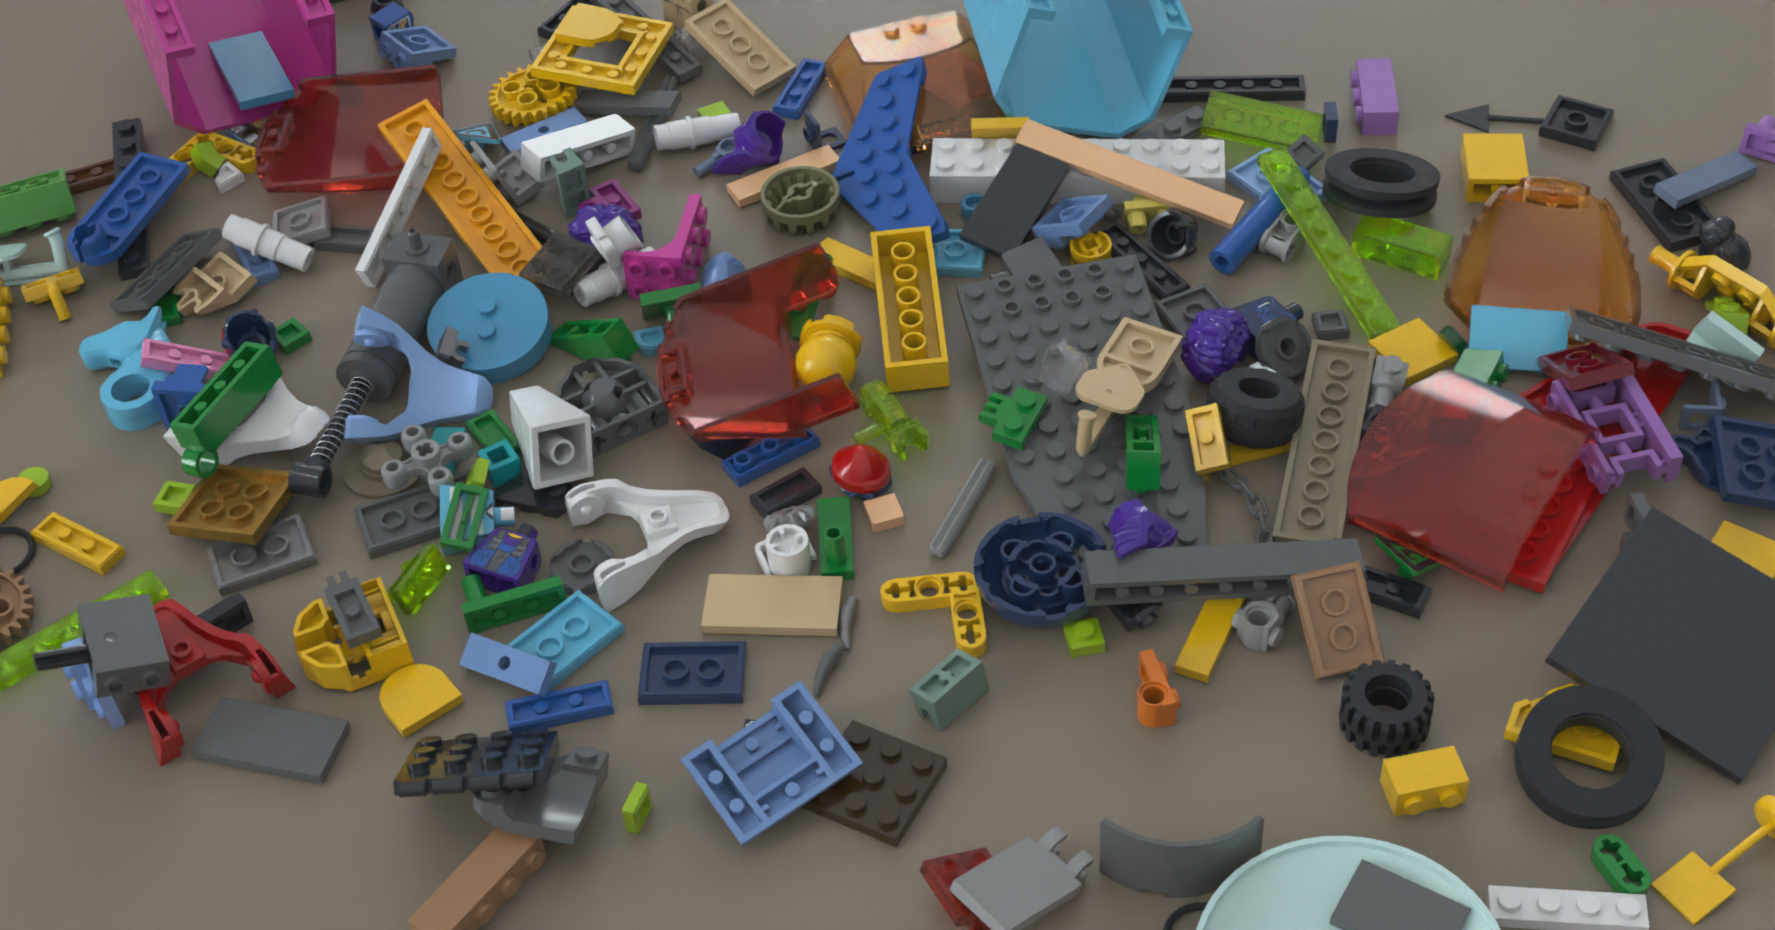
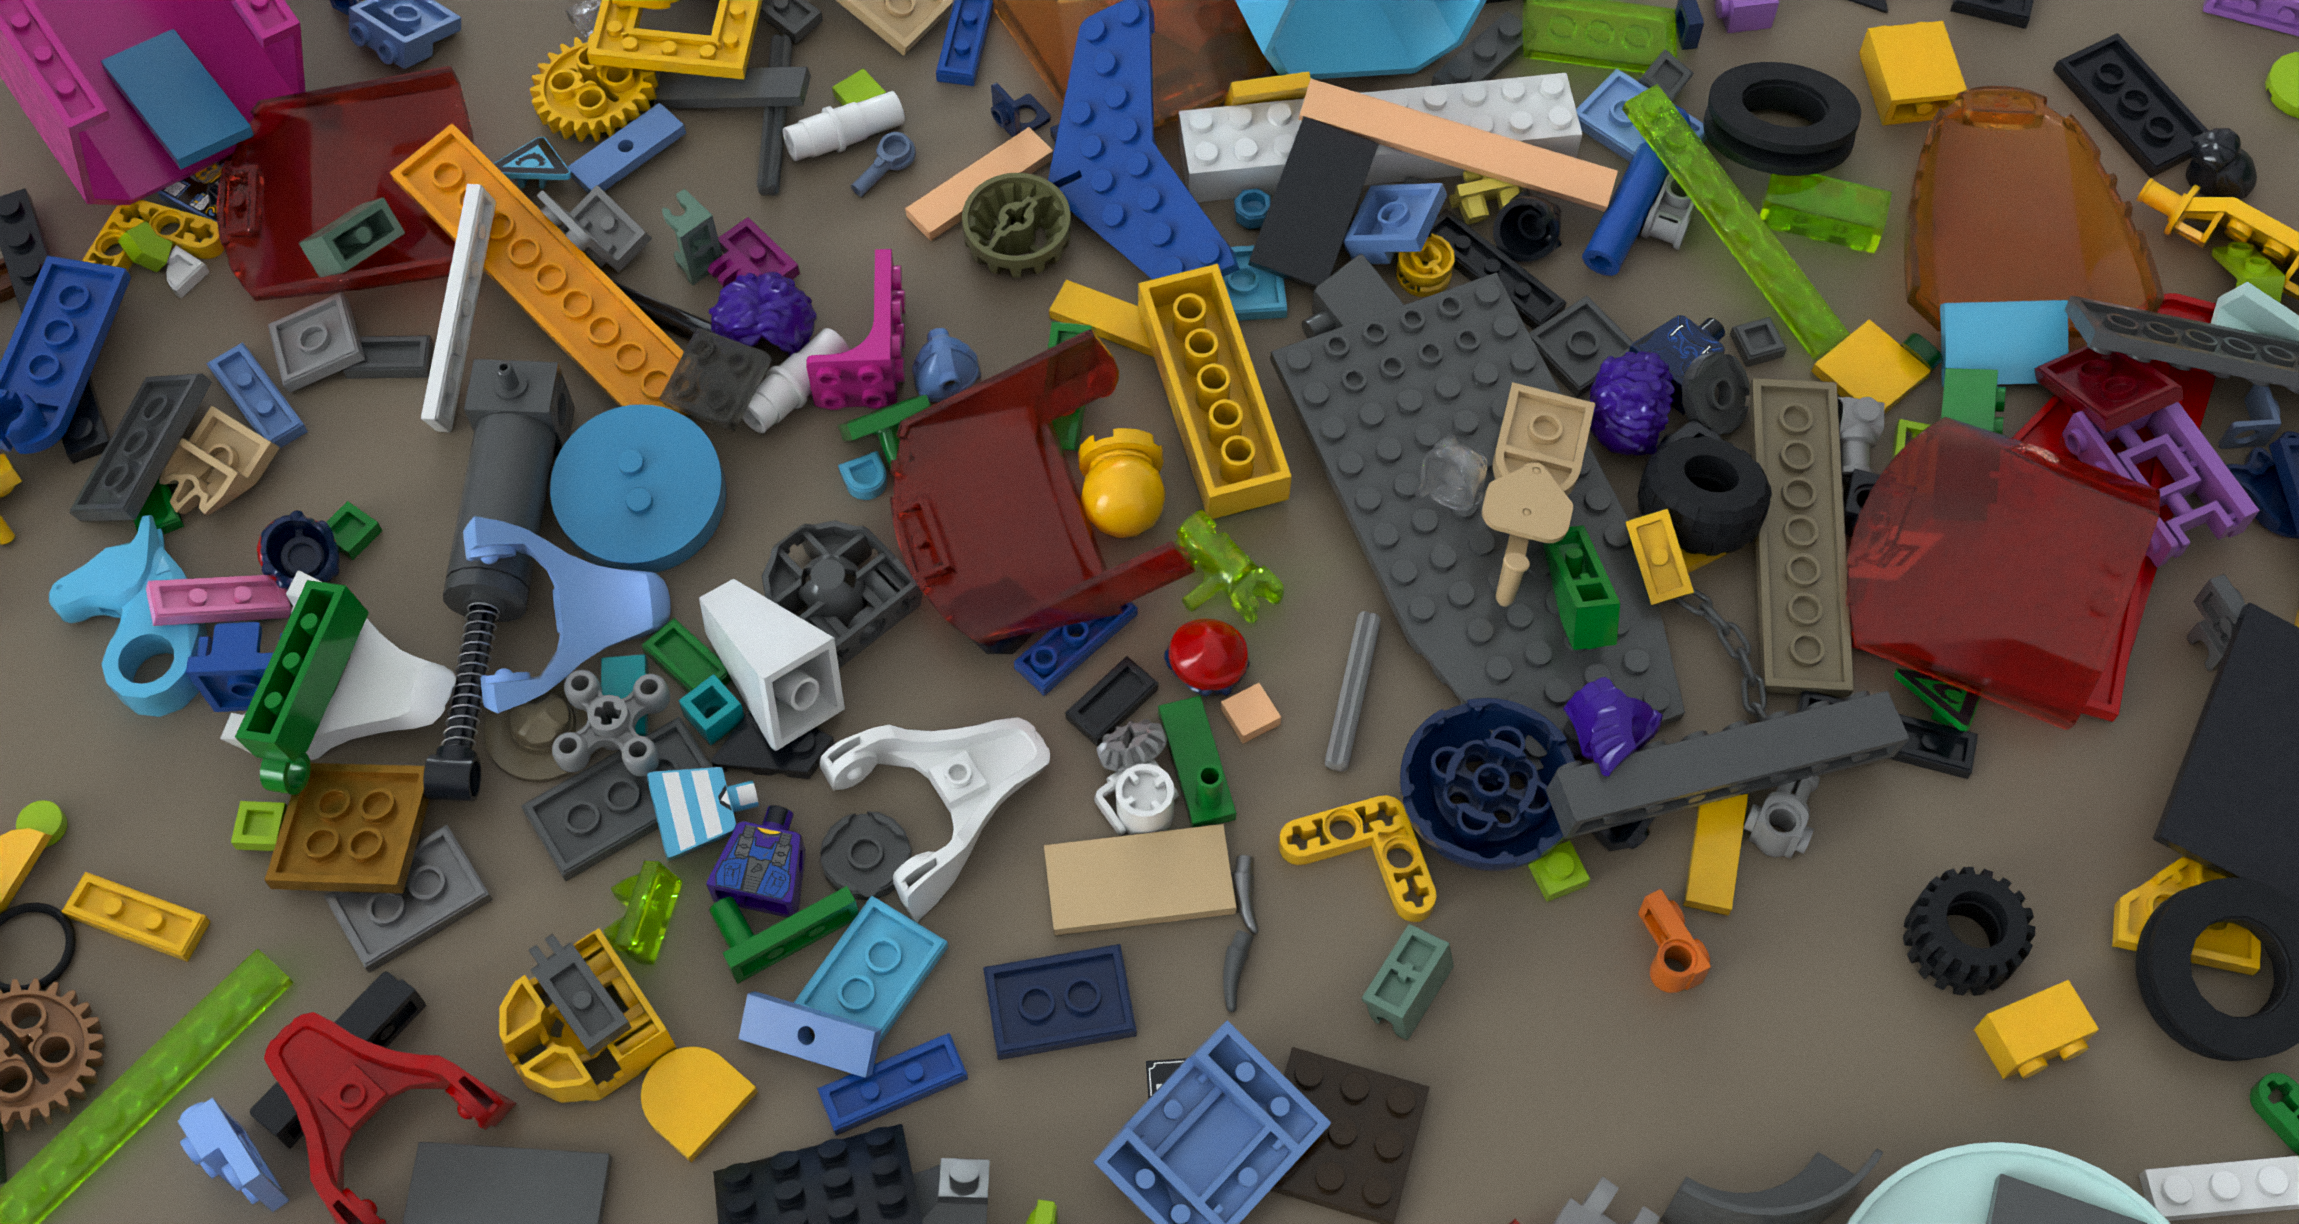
camera: 15 degrees left, 15 degrees up
(118, 644) = (266, 1120): dark grey piece -> none
(267, 242) = (278, 385): white piece -> none
(342, 159) = (352, 238): none -> sand green brick
(448, 346) = (592, 536): flat silver tile -> none
(458, 543) = (695, 778): green tile -> none
(478, 472) = (689, 744): lime tile -> none
(591, 141) = (699, 163): white brick -> none
(595, 338) = (790, 489): green slope -> none
(613, 239) = (788, 339): white piece -> none
(756, 144) = (934, 138): dark purple helmet -> none
(1013, 417) = (1397, 552): green hinge -> none
(1337, 619) = (1883, 810): medium nougat tile -> none
(1705, 179) = (2178, 64): sand blue tile -> none

